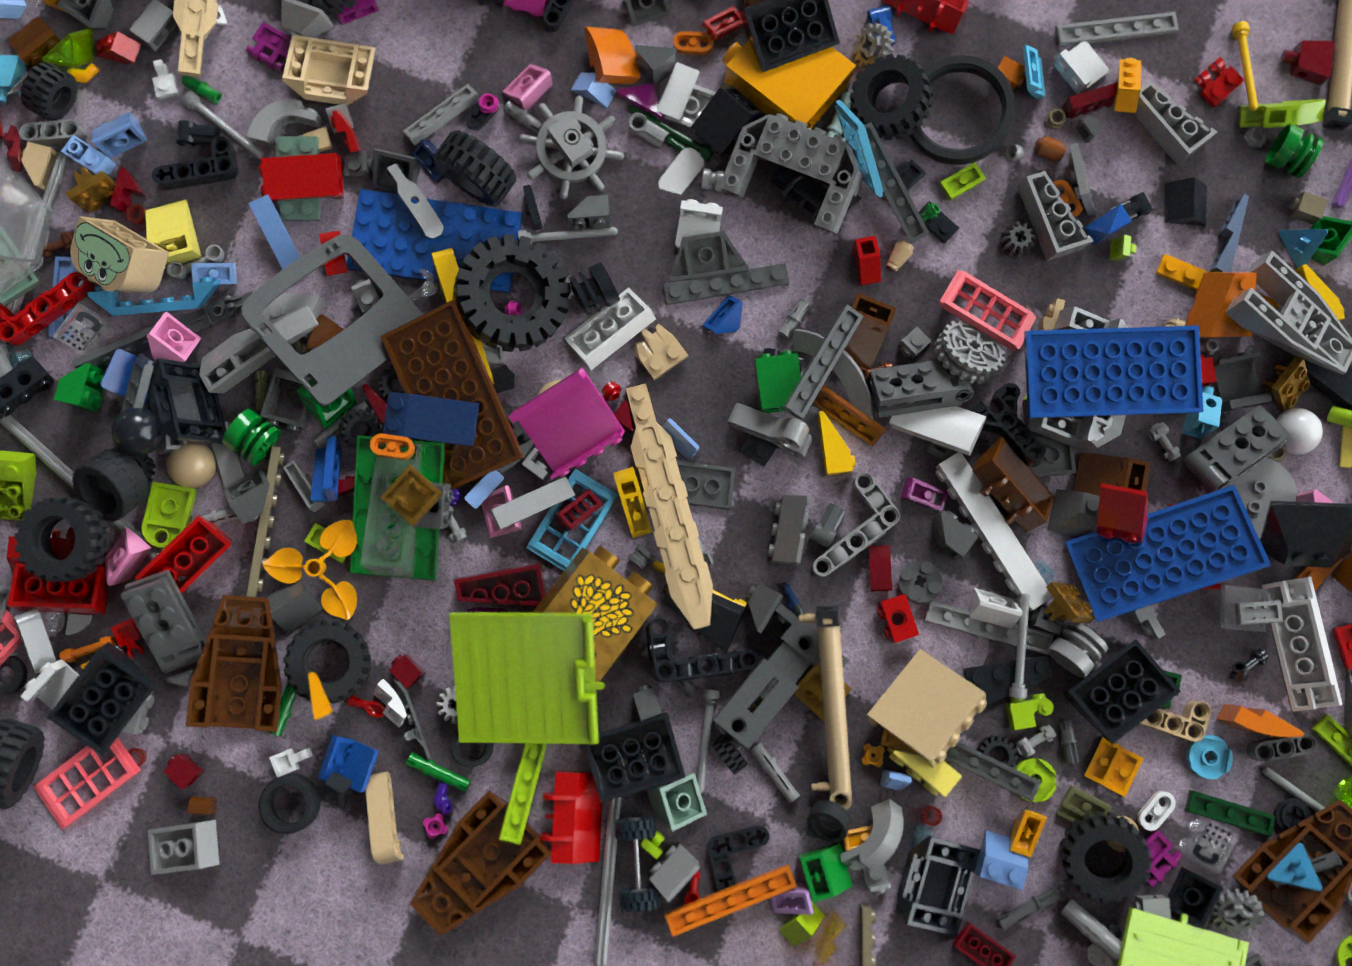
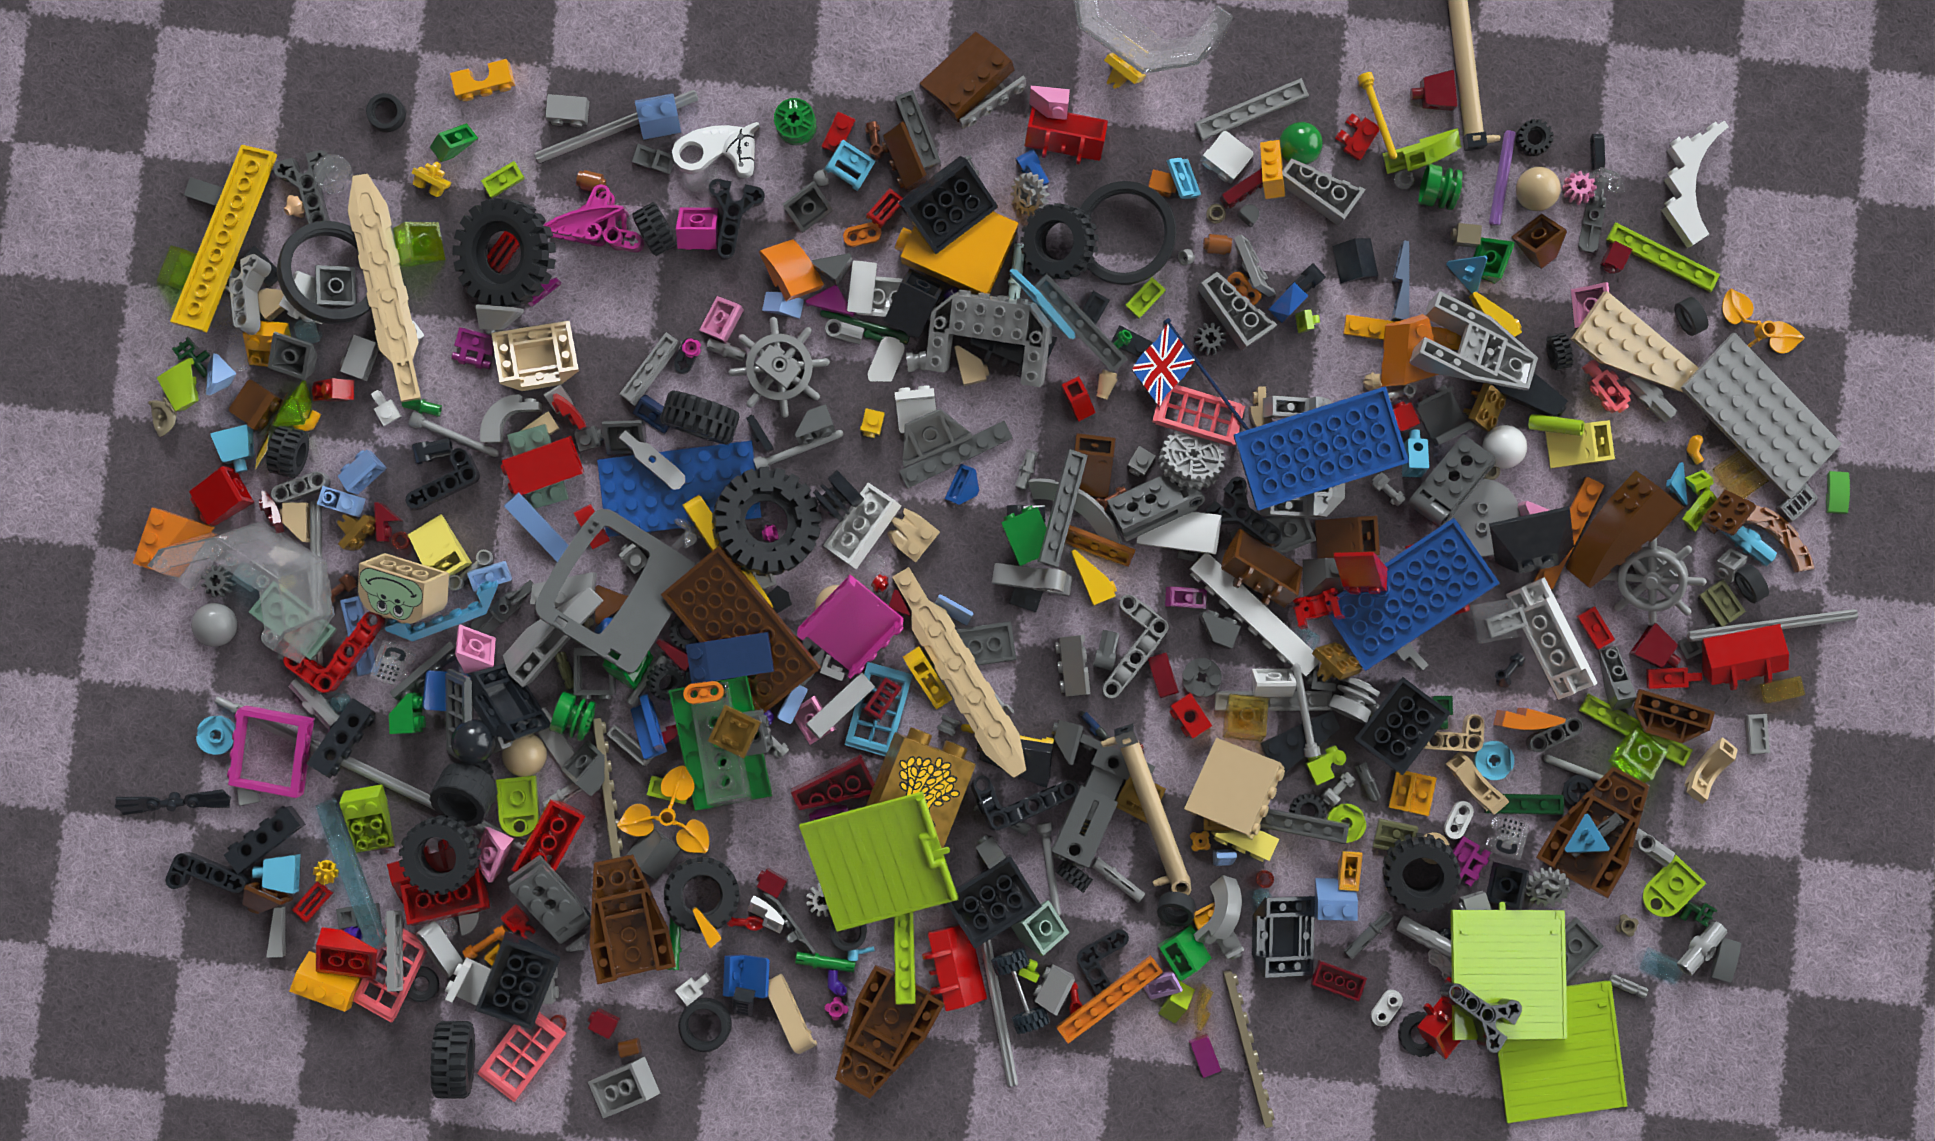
camera: 10 degrees left, 5 degrees up
(470, 773) = (853, 954): none -> medium azure hand
(649, 229) = (872, 423): none -> yellow bracket
(766, 200) = (970, 367): none -> tan slope
(956, 637) = (1245, 717): none -> clear yellow slope
(969, 251) = (1166, 365): none -> flag
(1062, 541) = (1317, 607): none -> red piece
(1162, 70) = (1301, 142): none -> green piece
(1184, 777) = (1476, 784): none -> tan arch

